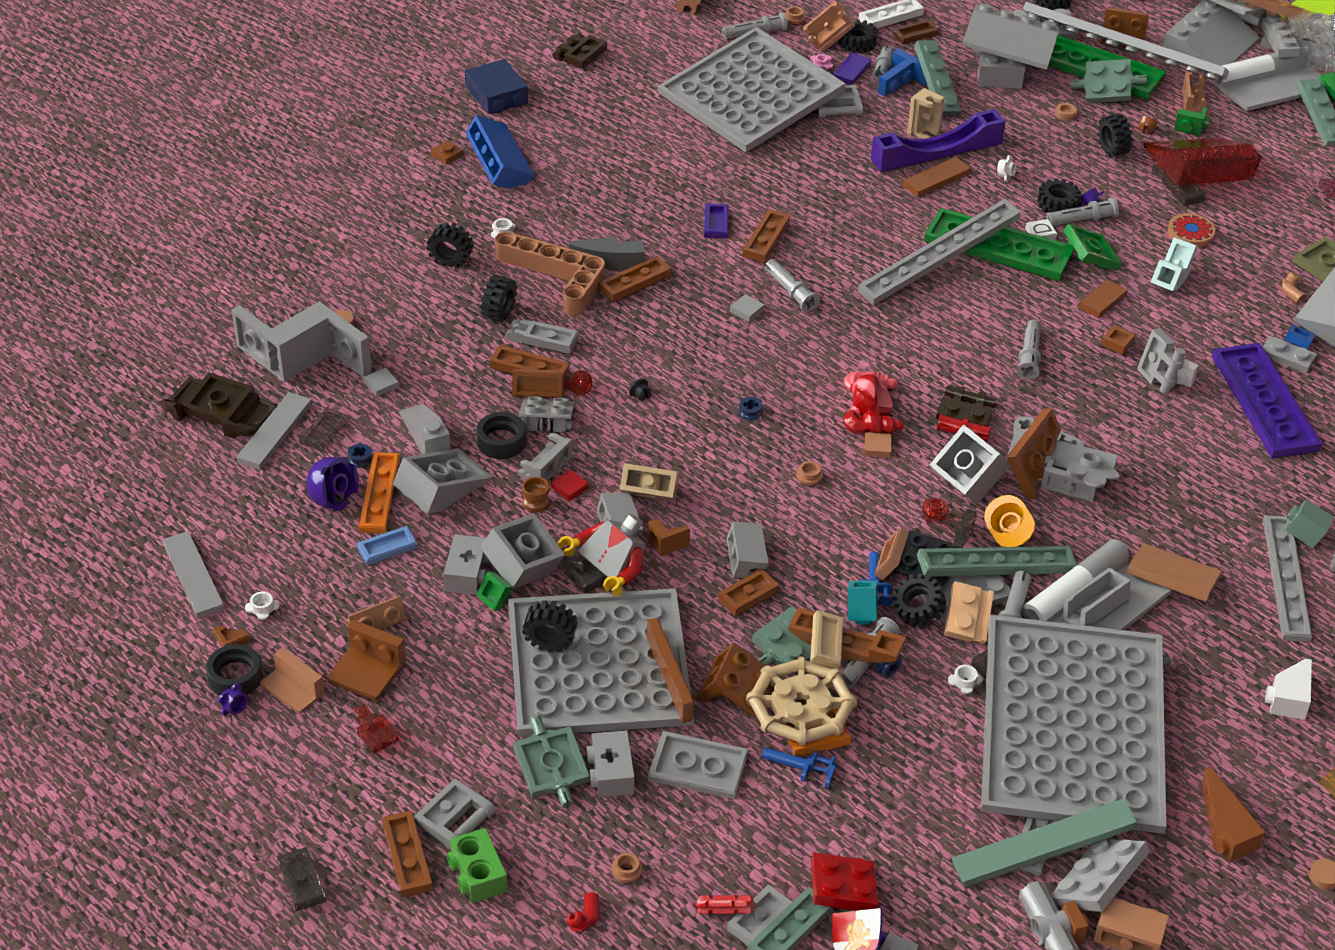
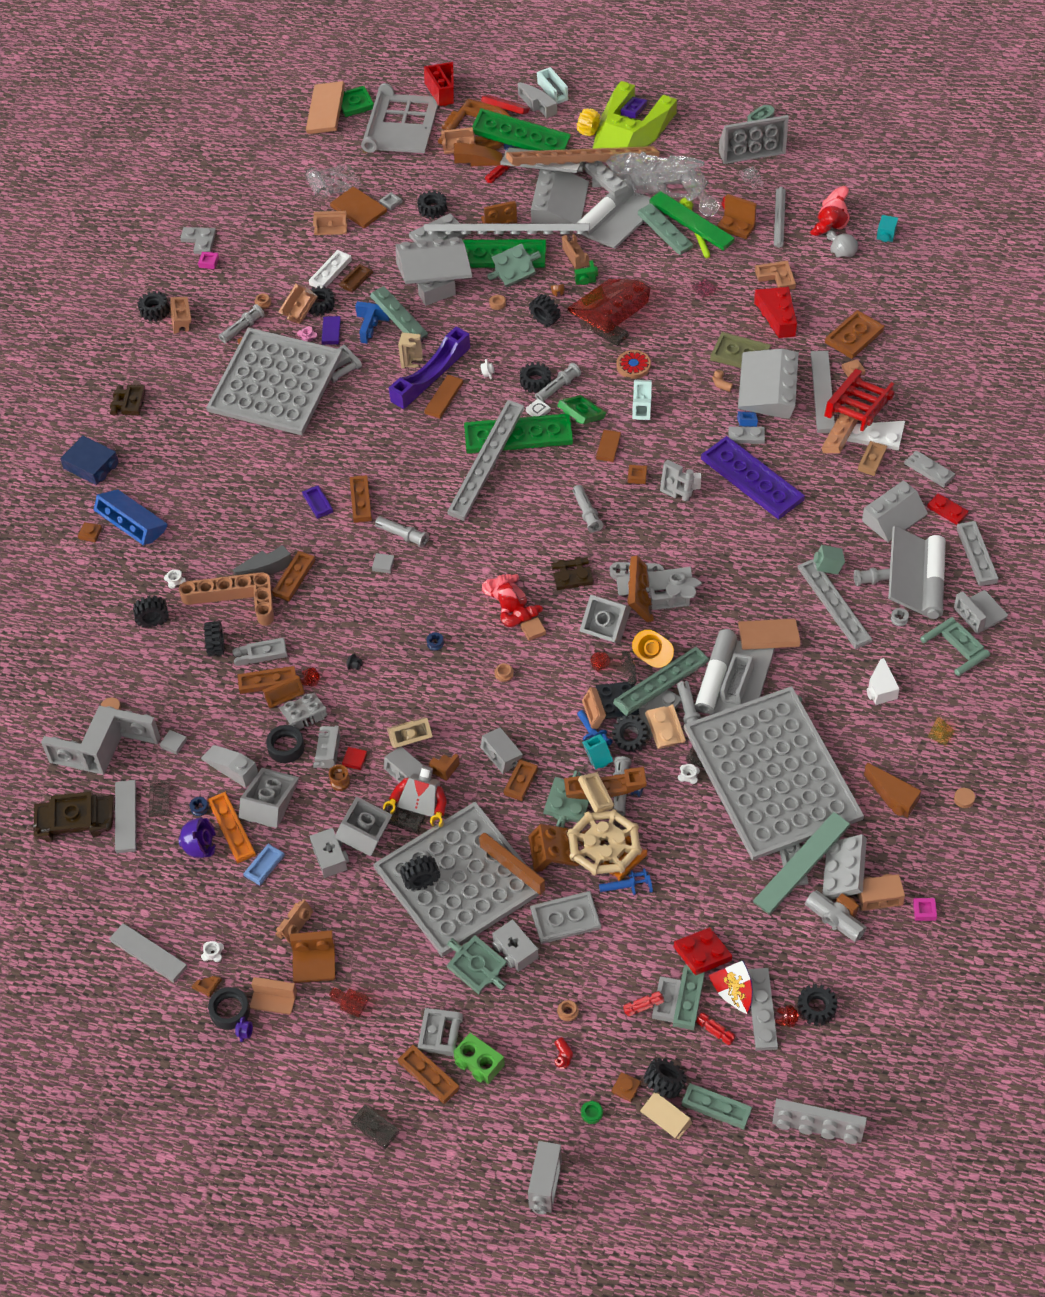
camera: 25 degrees left, 10 degrees up
(494, 591) = (359, 862): green plate -> none
(883, 62) = (350, 315): light grey pin -> none
(952, 425) = (580, 589): red pin -> none
(1090, 195) = (555, 367): dark purple plate -> none

